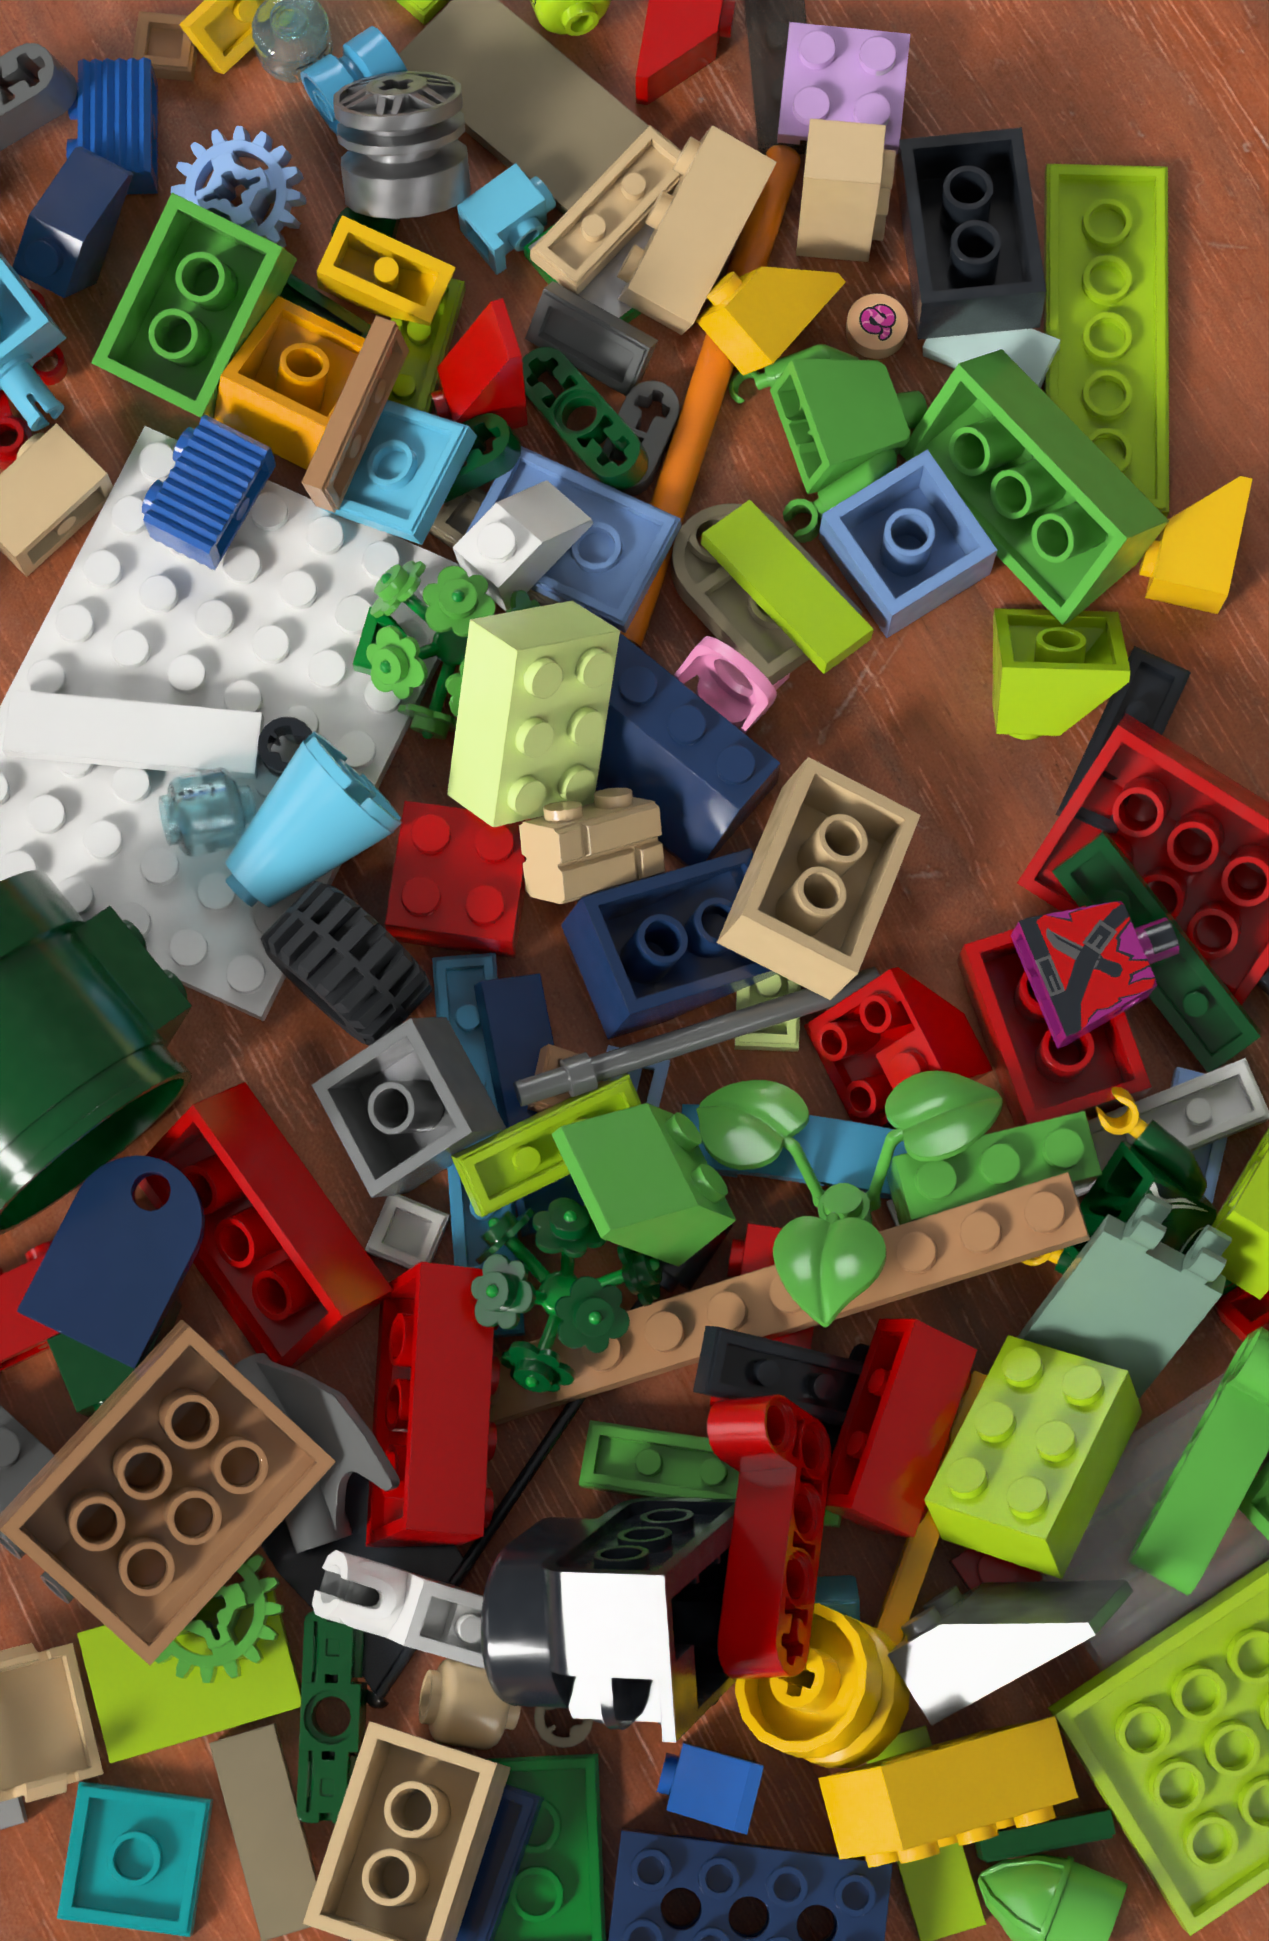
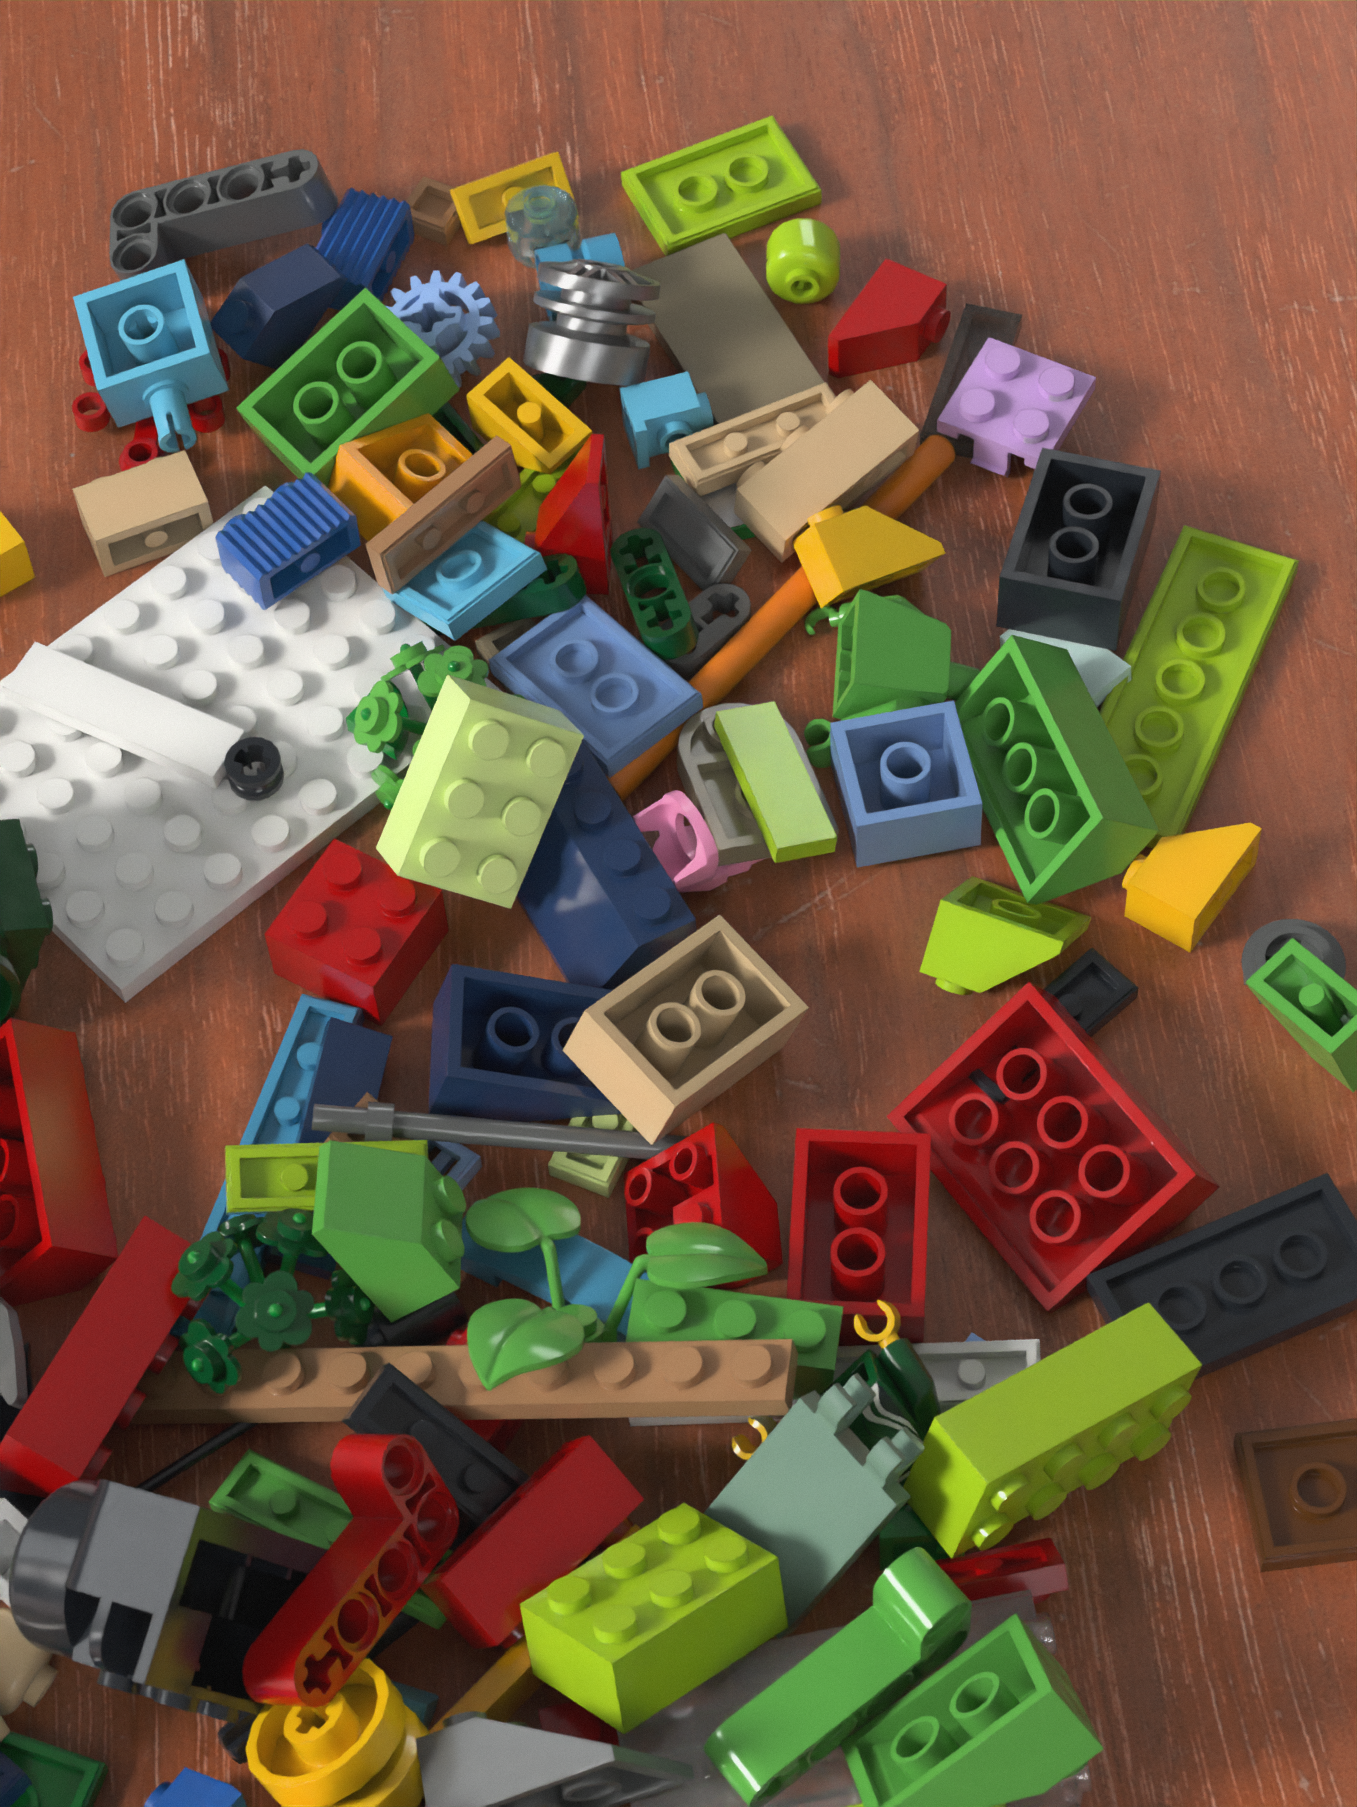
camera: 25 degrees right, 20 degrees down
(206, 811) = (153, 791): clear light blue head -> none
(308, 825) = (235, 826): medium azure cone -> none
(346, 963) = (212, 954): black tyre -> none
(407, 1232) = (166, 1208): white tile -> none
(408, 1105) = (206, 1090): dark grey brick -> none
(521, 540) = (543, 656): white slope -> none
(577, 1733) = (95, 1736): dark tan bush -> none
(591, 846) = (485, 931): tan brick -> none
(844, 190) = (967, 468): tan brick -> none
(876, 326) = (967, 609): light nougat tile -> none
(1090, 964) = (906, 1176): torso -> none
(1187, 986) = (991, 1212): dark green plate -> none

